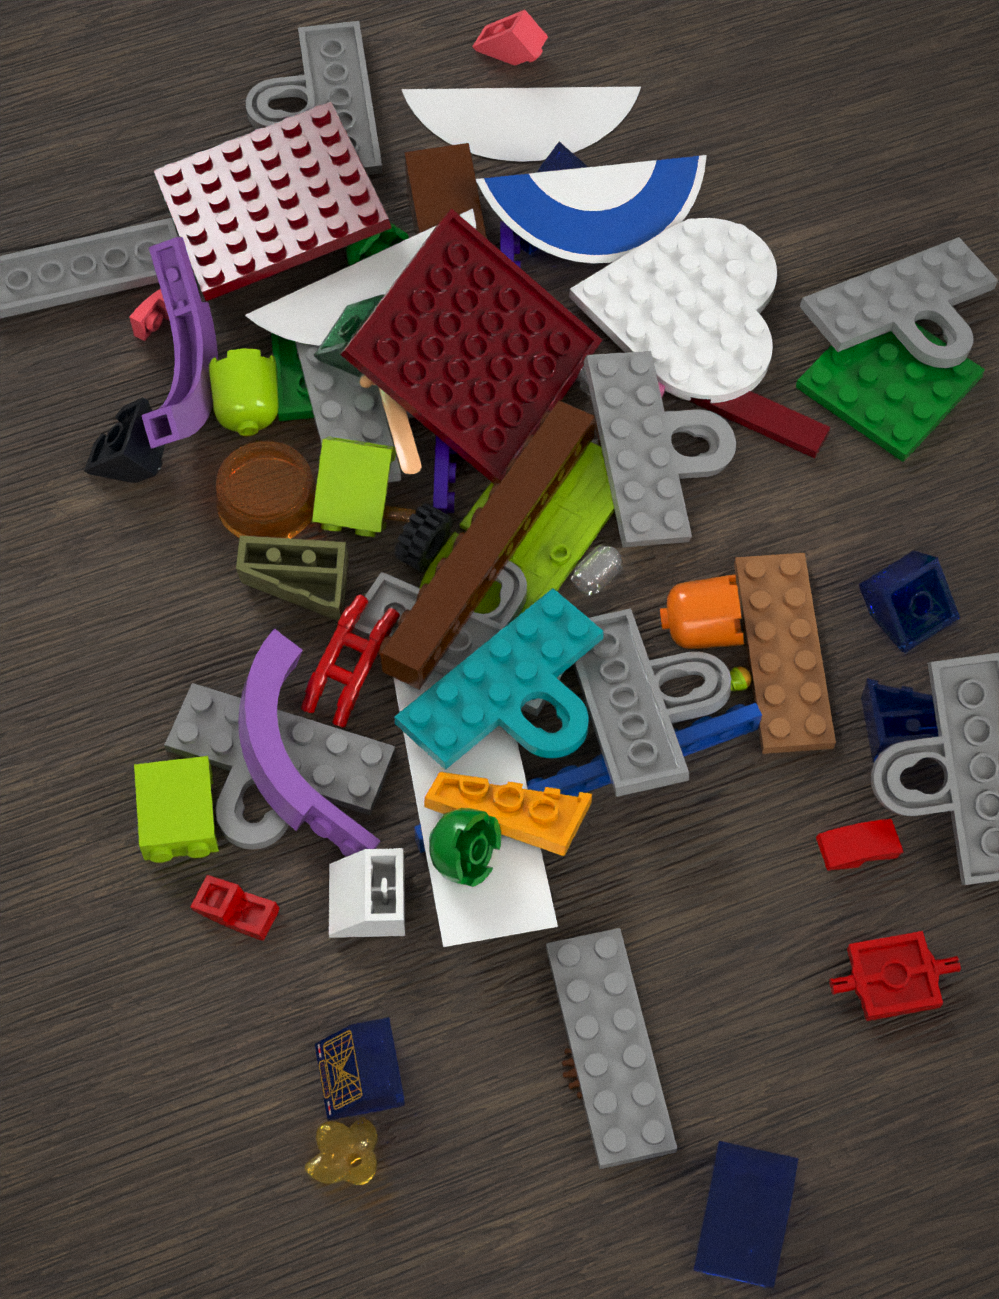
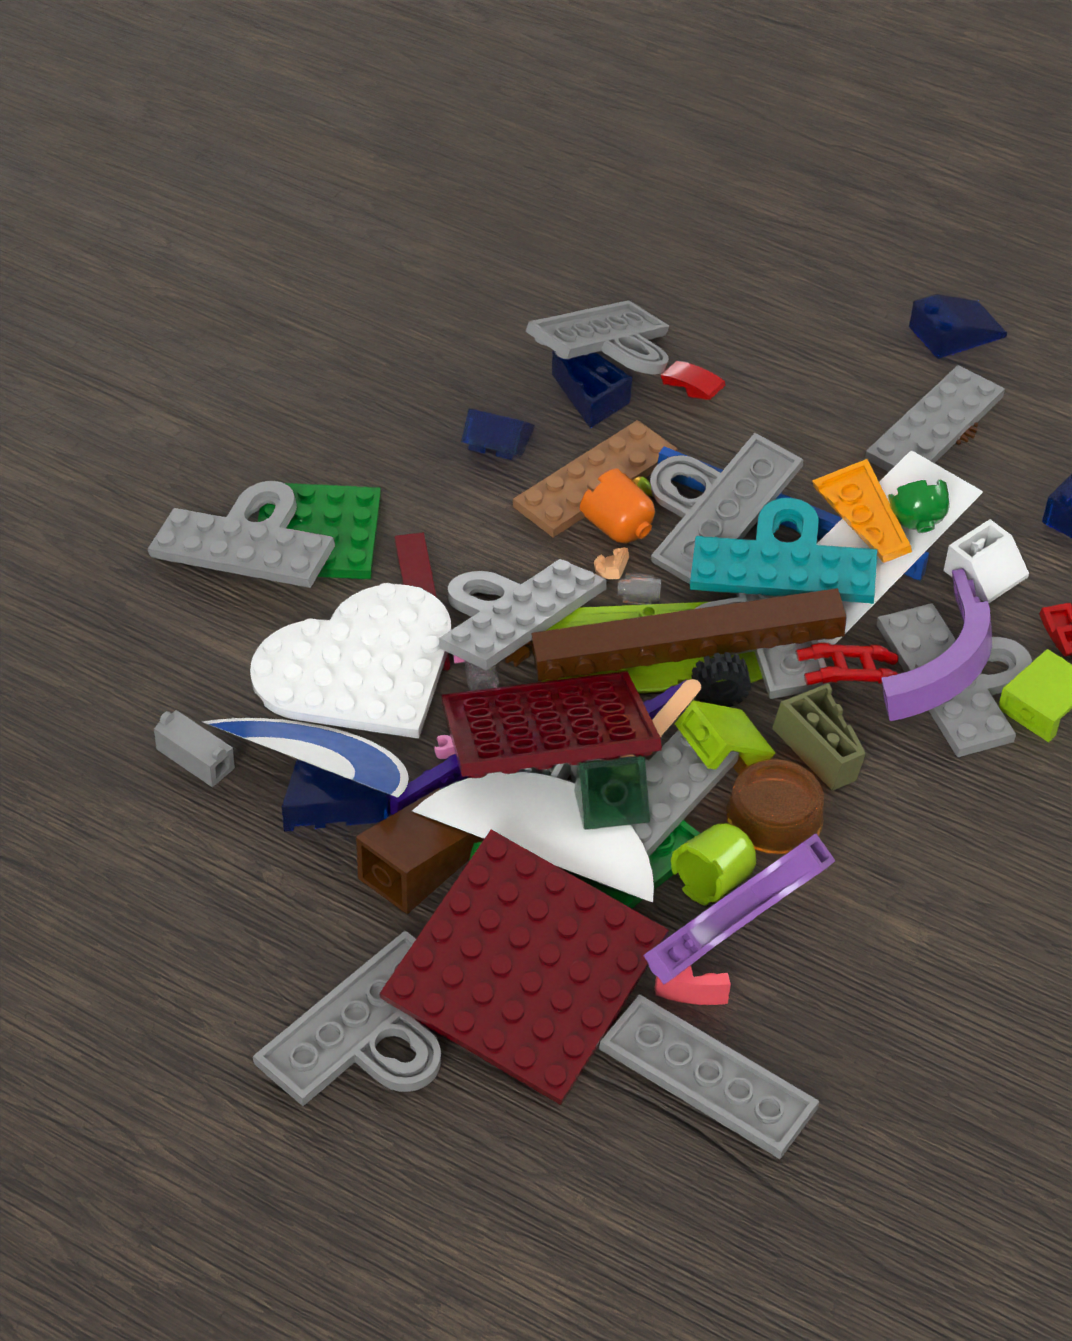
camera: 130 degrees left, 15 degrees down
(125, 449) = (837, 913): black slope -> none
(512, 39) = (178, 933): coral slope -> none
(521, 121) = (256, 884): white sticker -> none
(647, 568) = (612, 566): none -> light nougat plate
(689, 138) = (193, 747): none -> light grey brick
(894, 975) = (757, 330): red plate -> none

